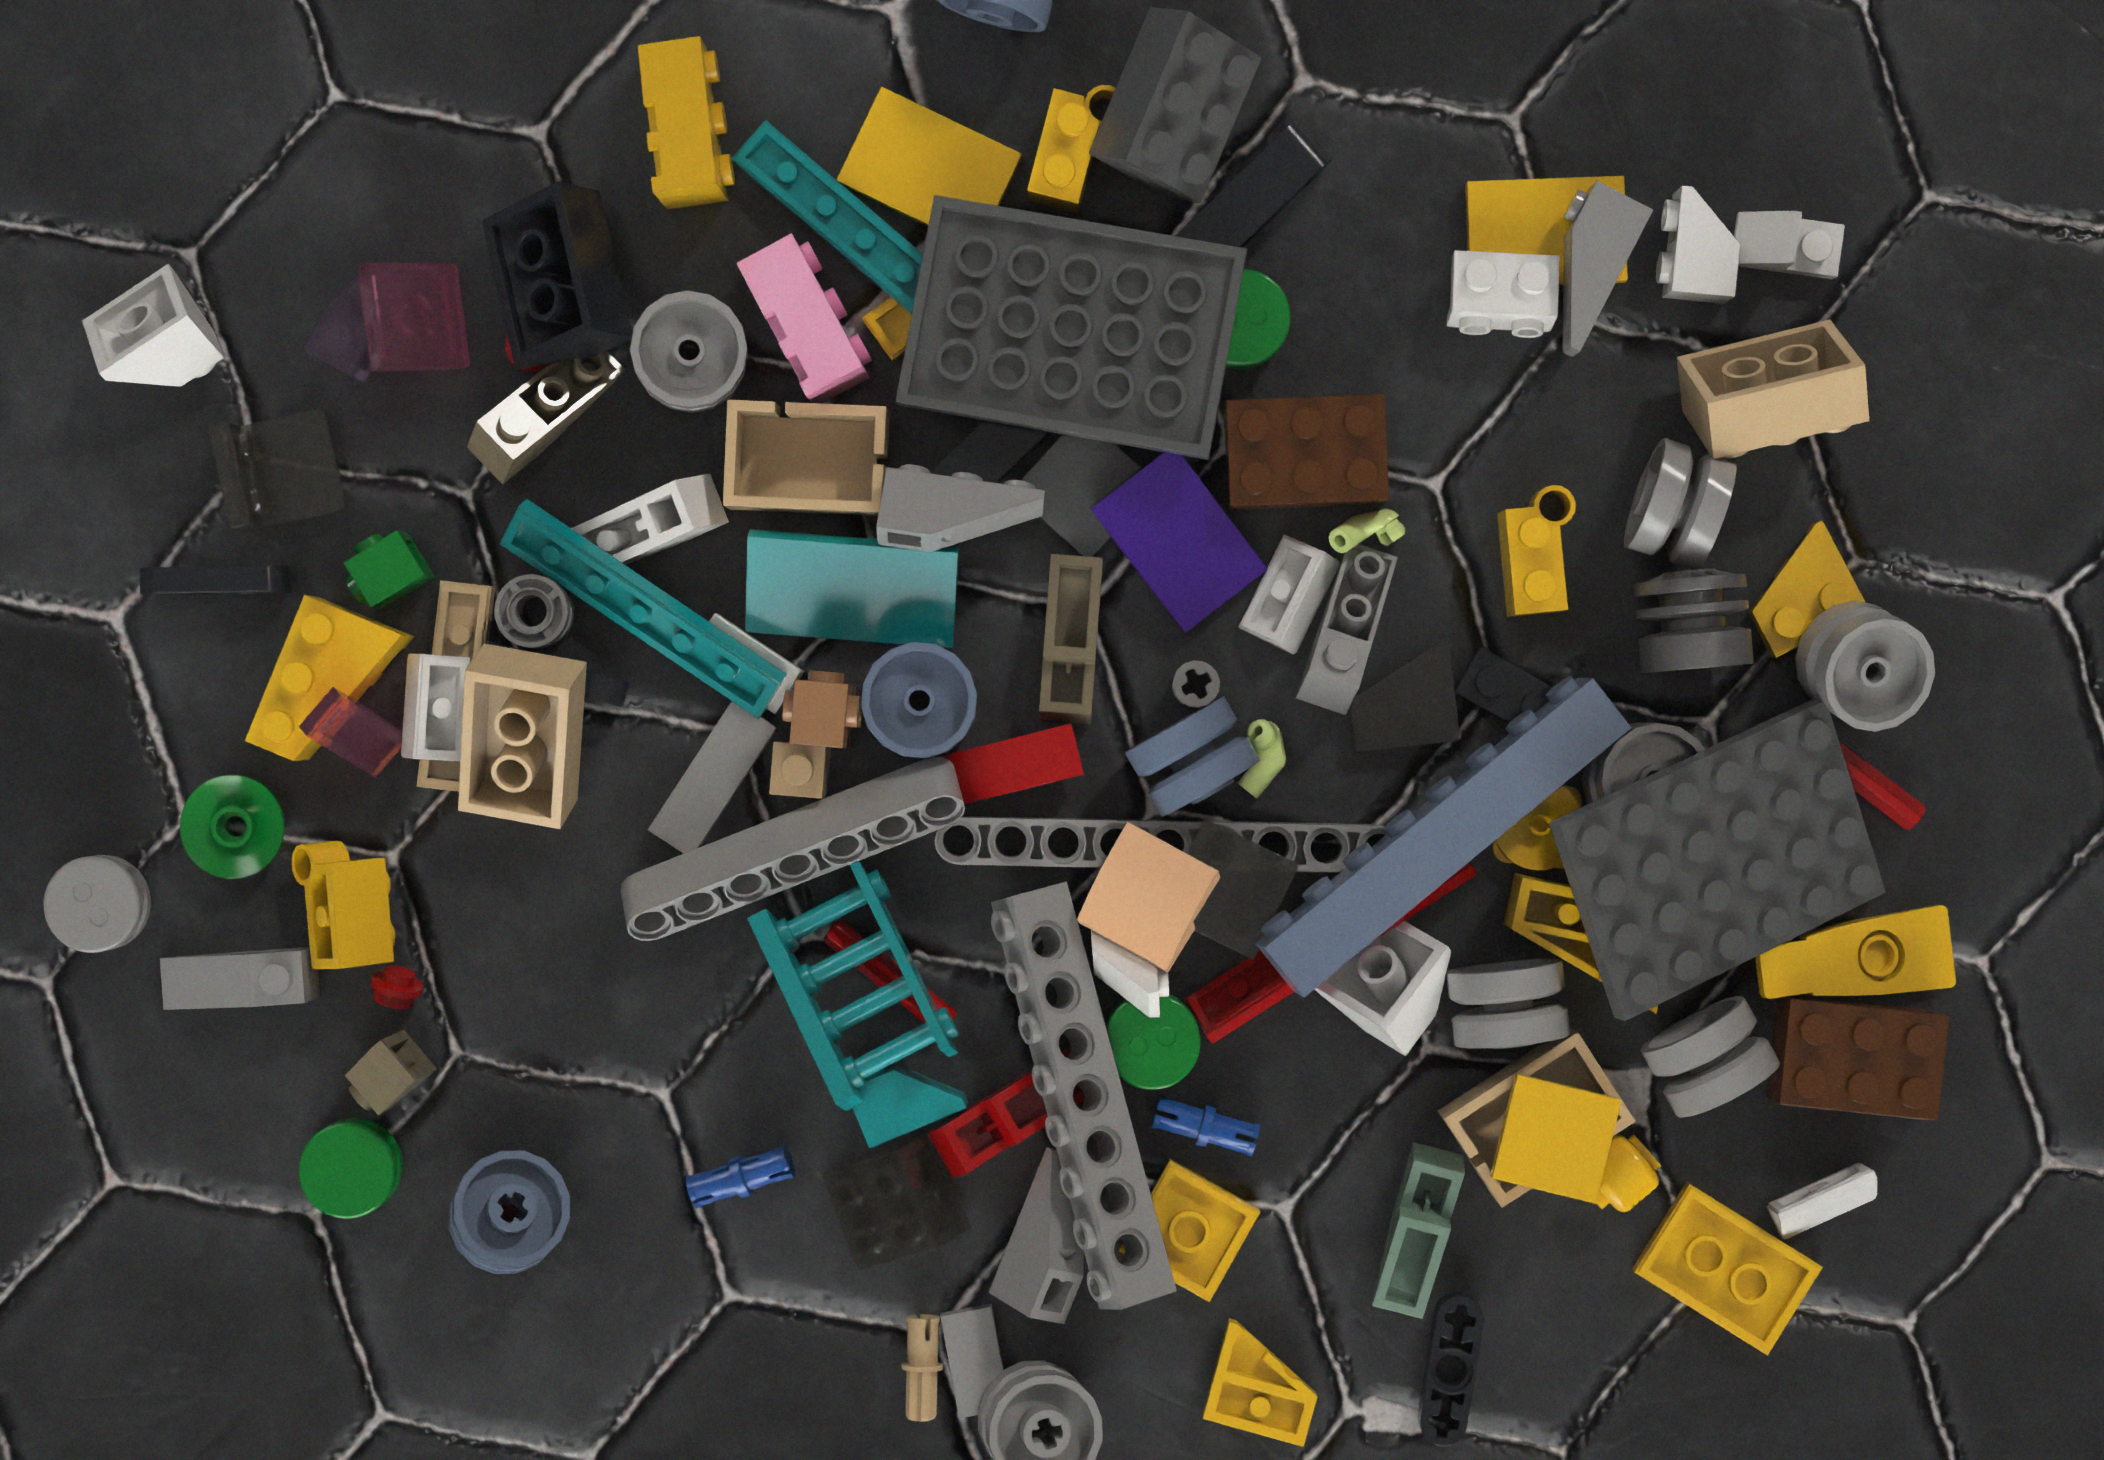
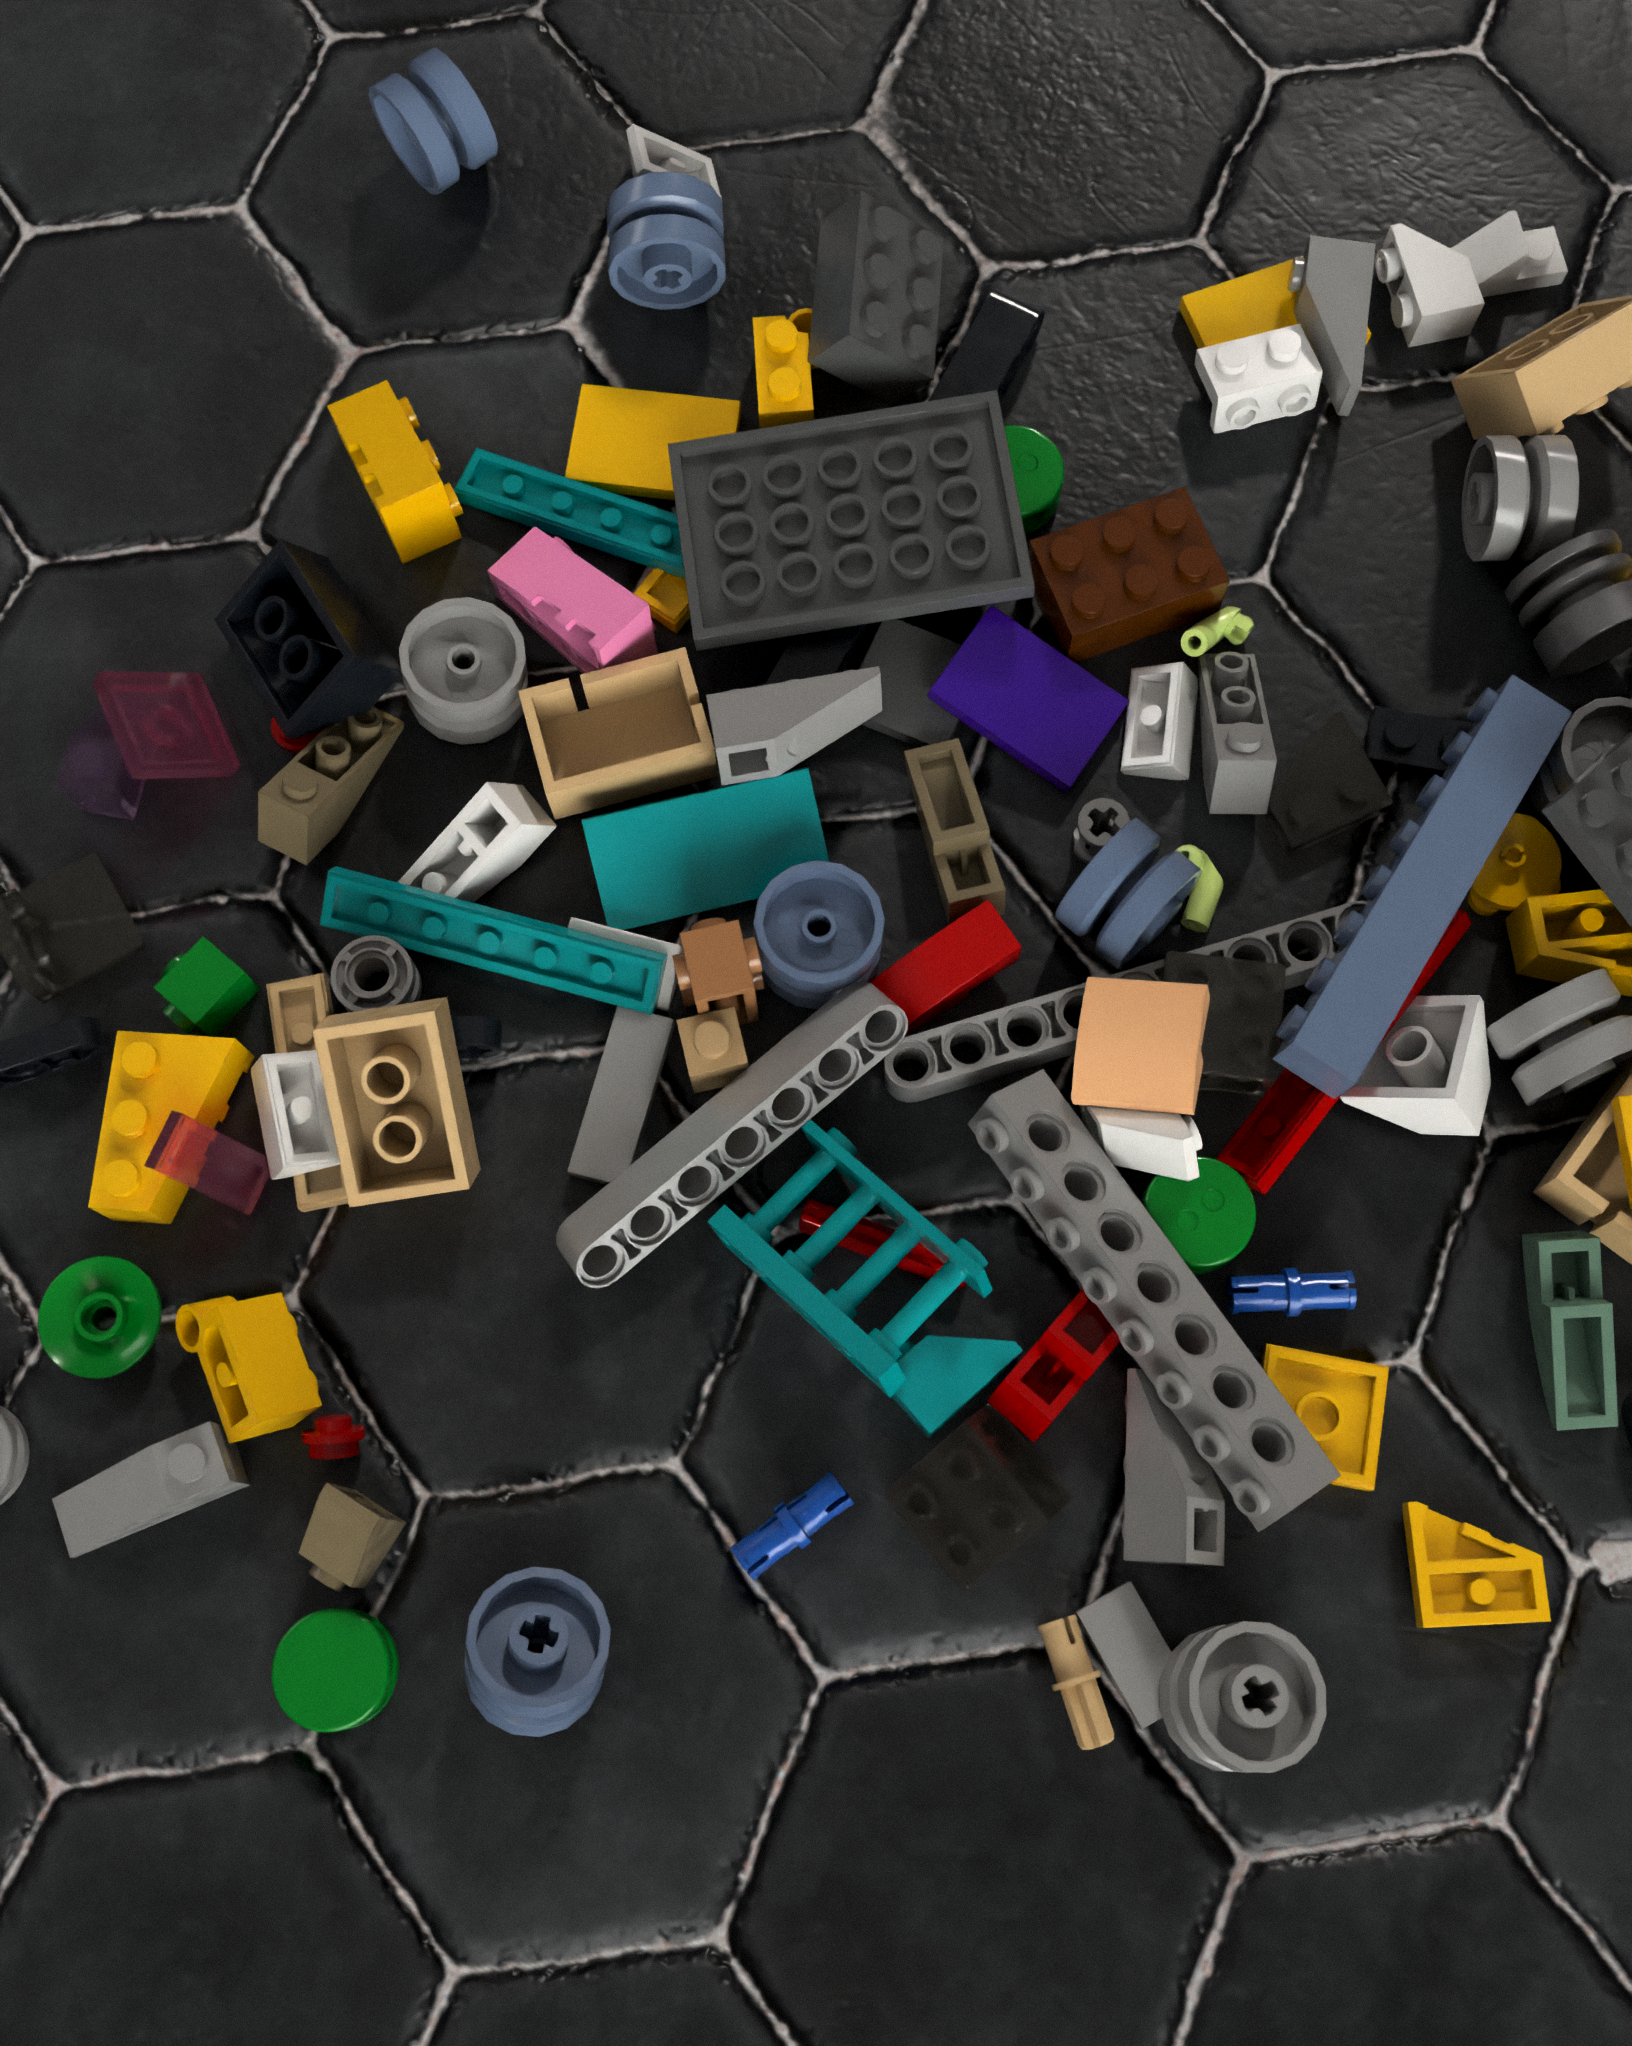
camera: 15 degrees left, 15 degrees down
(1534, 556) = (1393, 601): yellow hinge -> none

